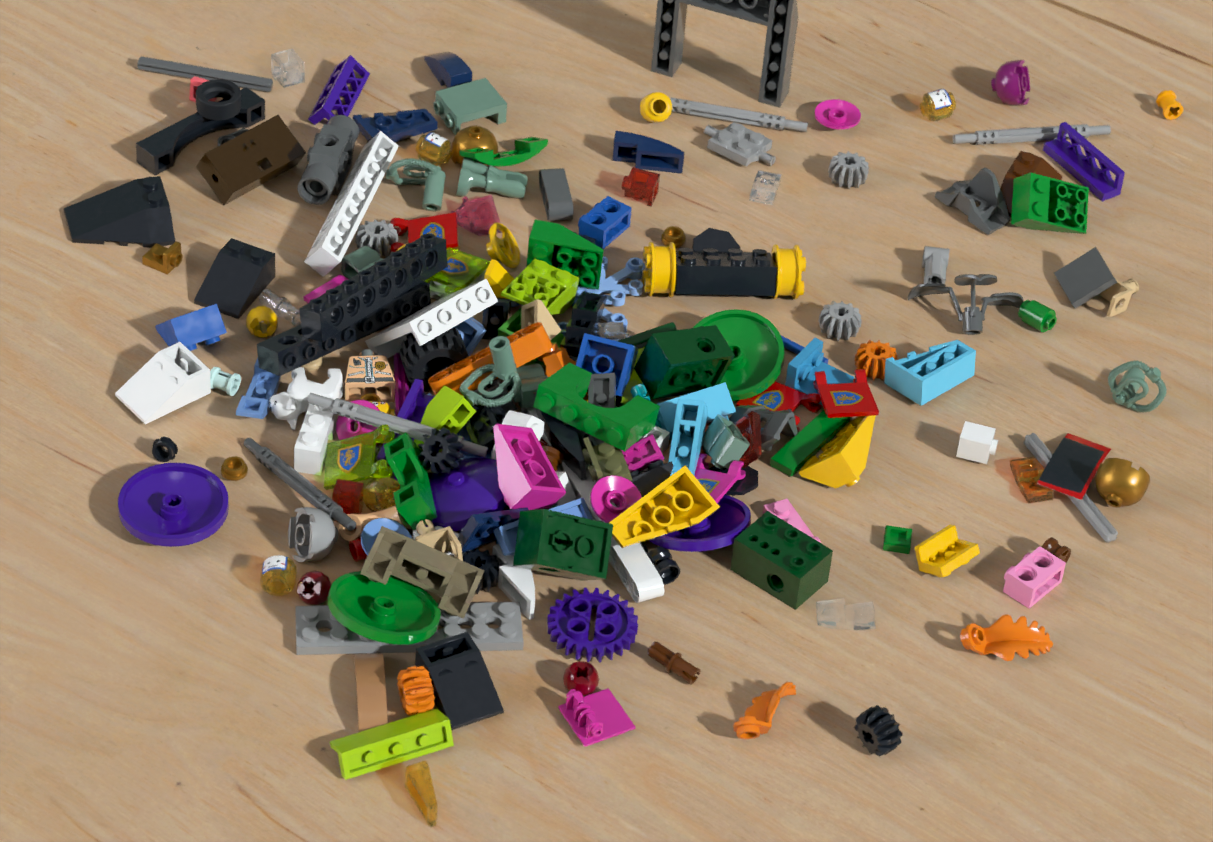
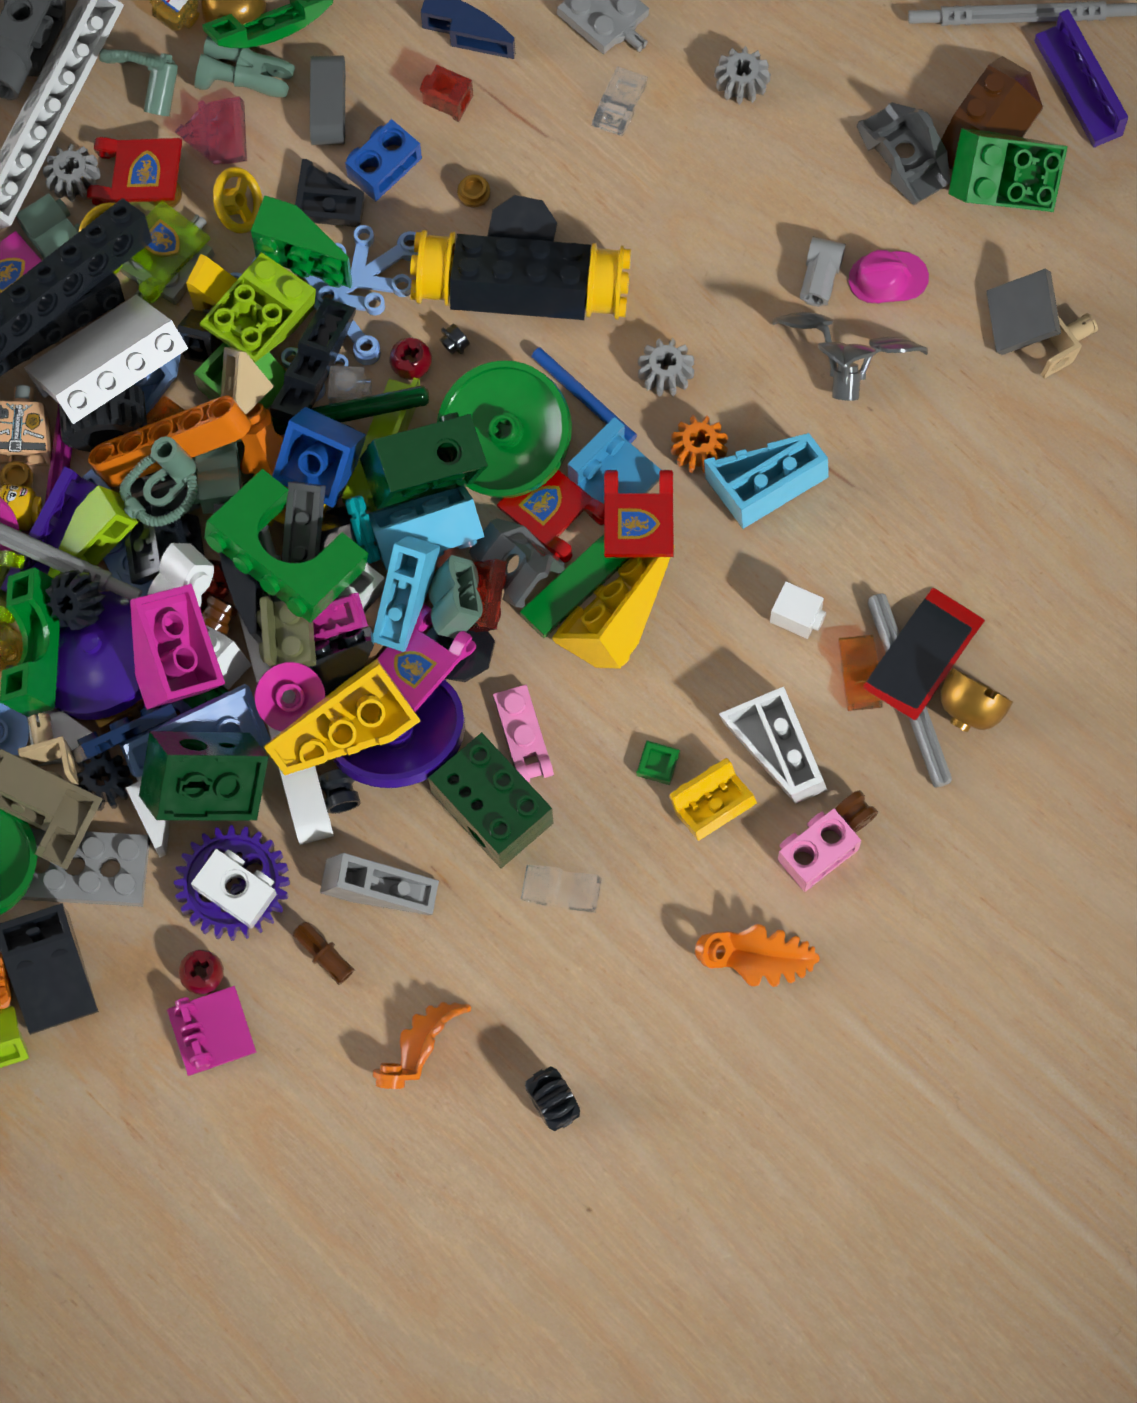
camera: 15 degrees right, 30 degrees up
(600, 613) = (245, 906): none -> white brick
(650, 319) = (414, 348): none -> dark red piece
(681, 314) = (454, 339): none -> black plate
(703, 617) = (378, 885): none -> light grey slope
(982, 262) = (888, 277): none -> dark pink piece
(985, 515) = (776, 740): none -> white wedge
(1037, 315) = (941, 374): green brick -> none
(1126, 391) = (1027, 524): sand green piece -> none

